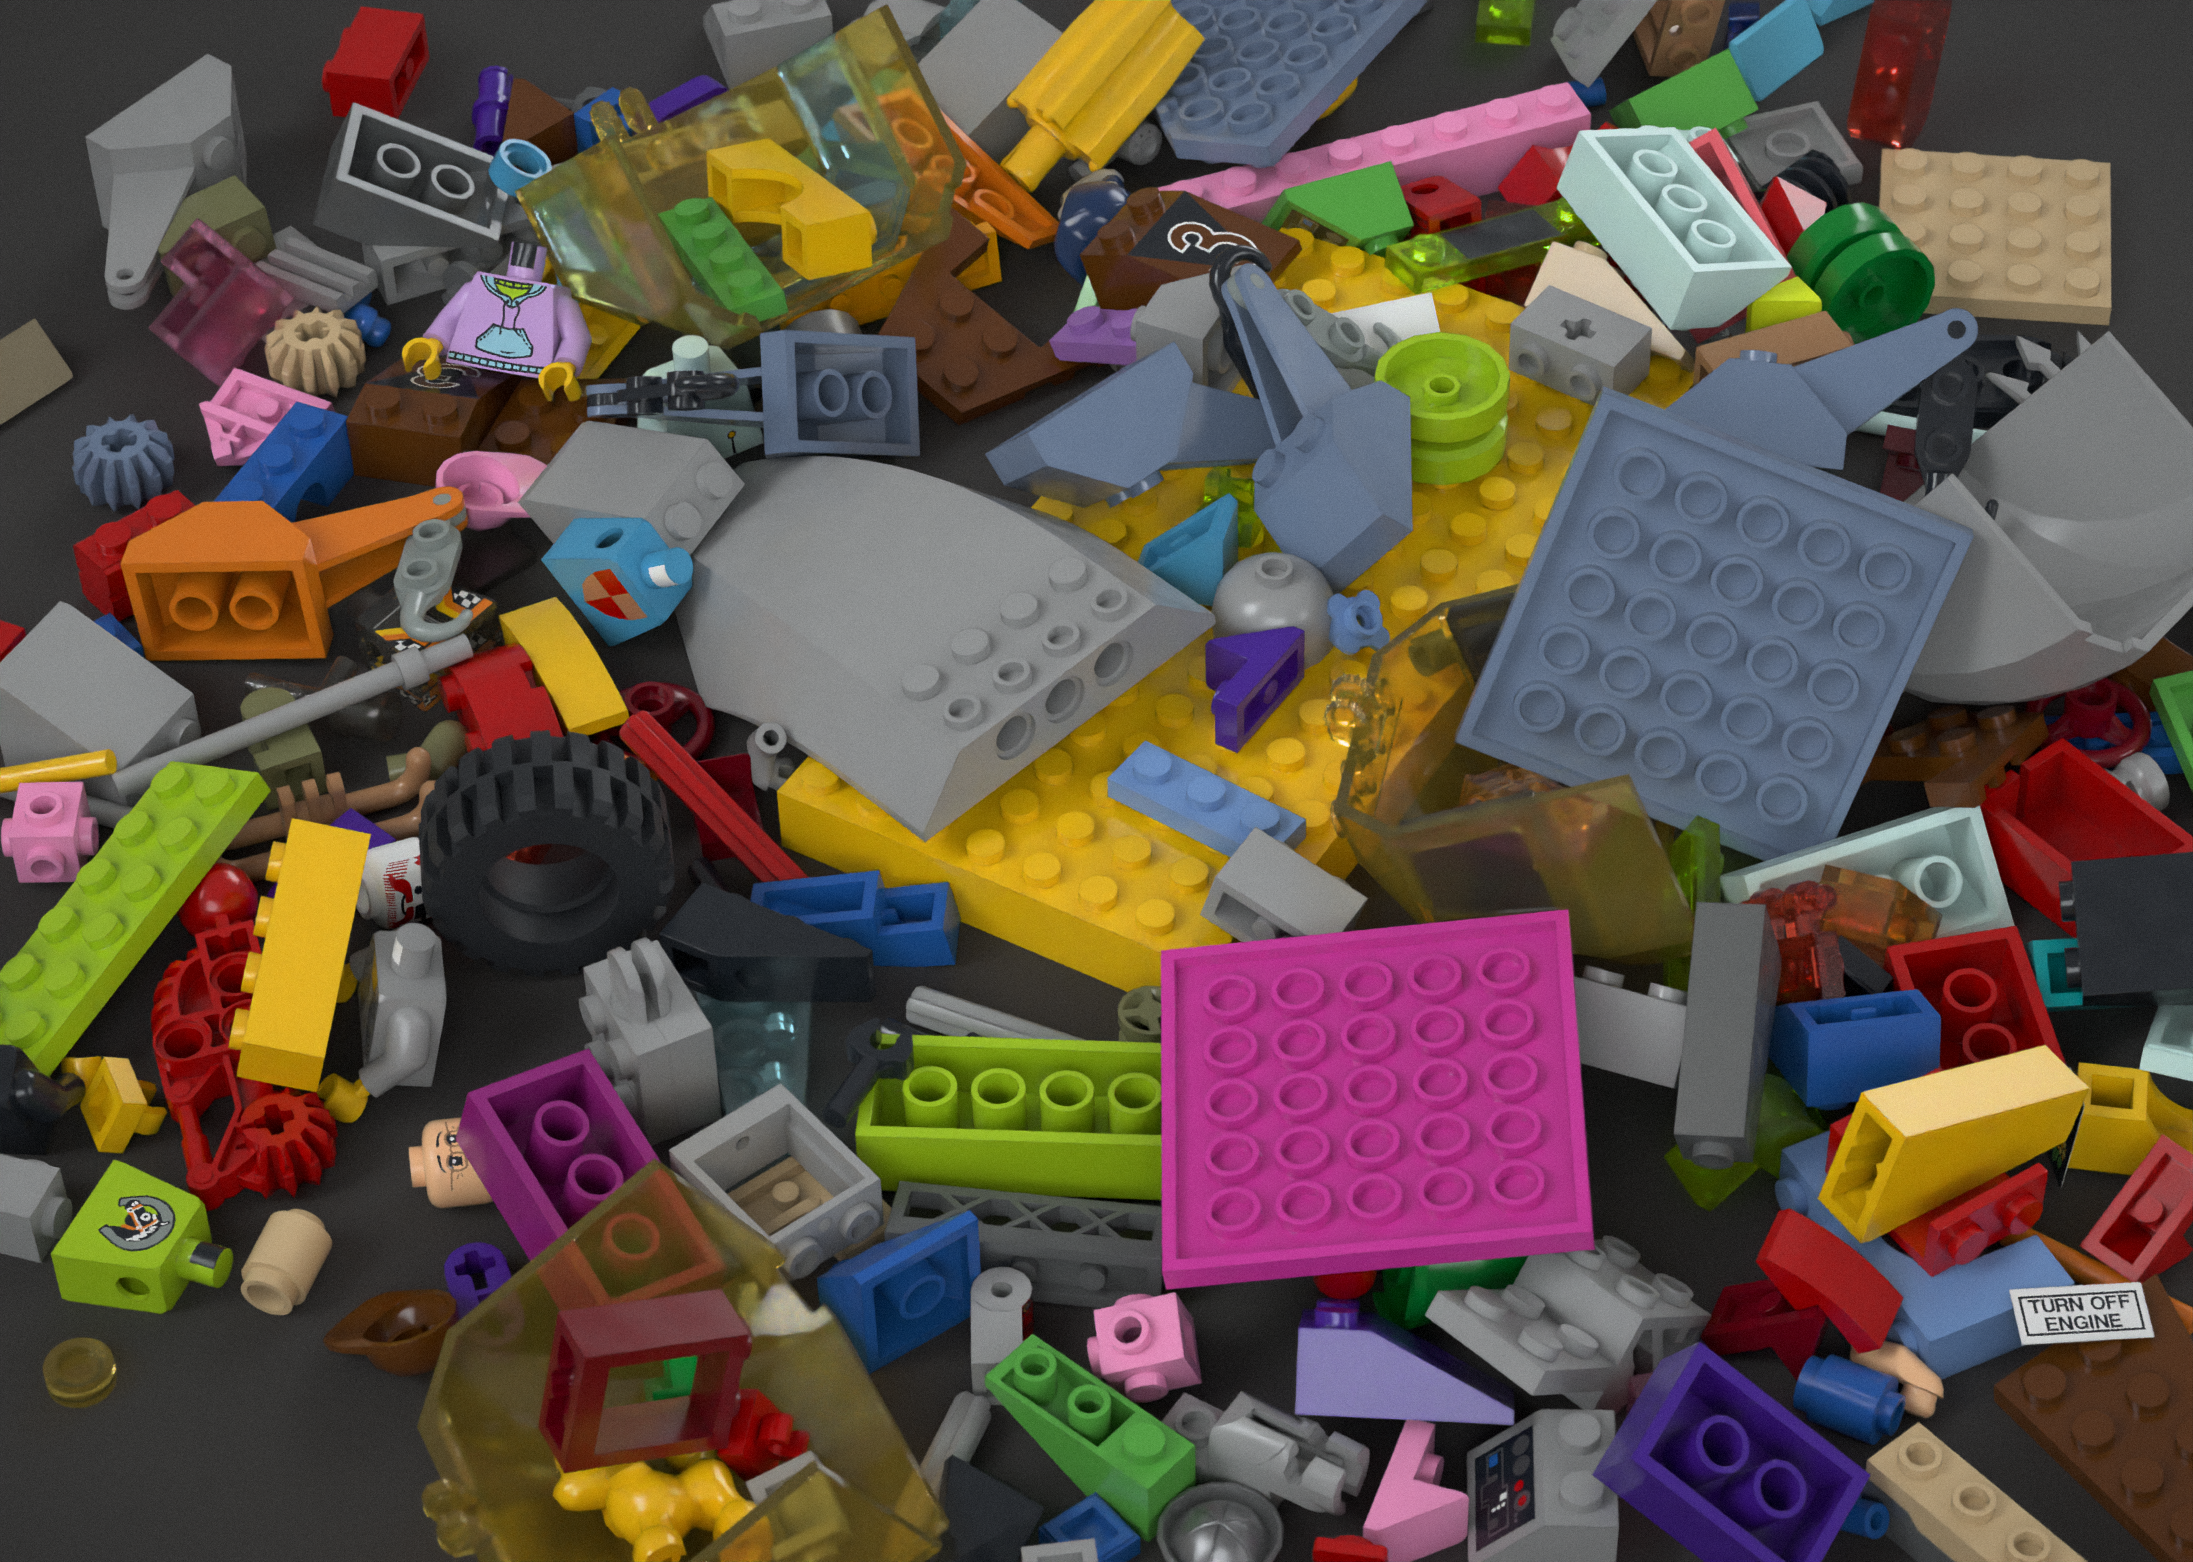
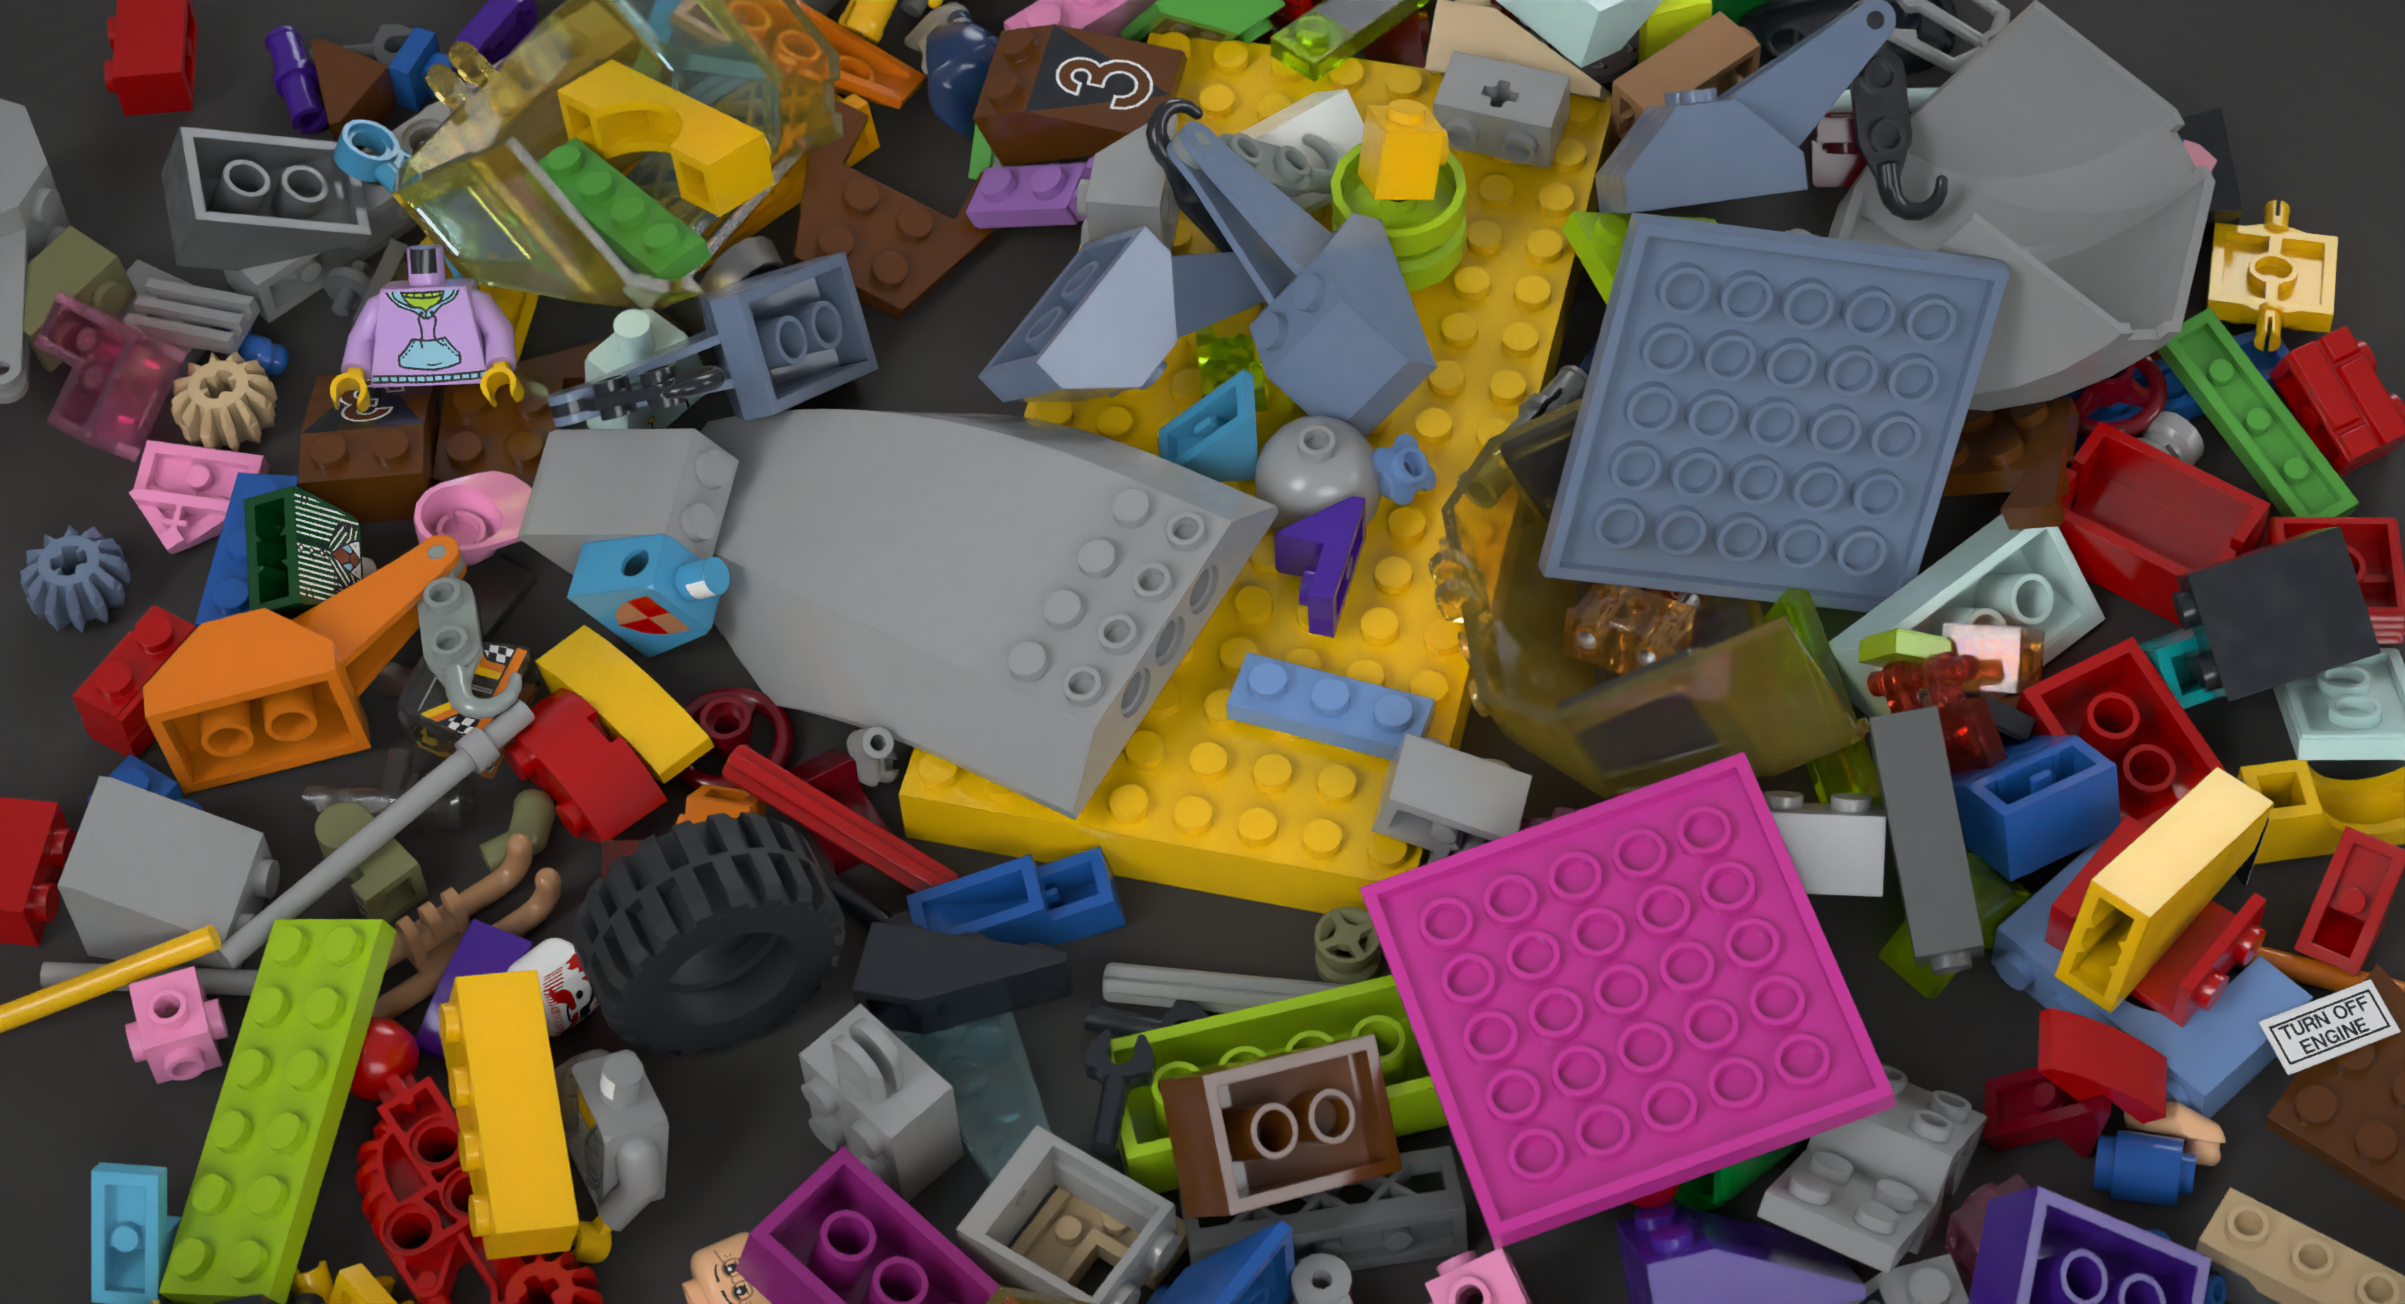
camera: 15 degrees left, 10 degrees up
(321, 466) = (300, 551): none -> dark green torso
(1006, 1135) = (1279, 1126): none -> reddish brown slope
(1450, 339) = (1402, 151): none -> yellow brick
(1772, 872) = (1900, 645): none -> lime tile

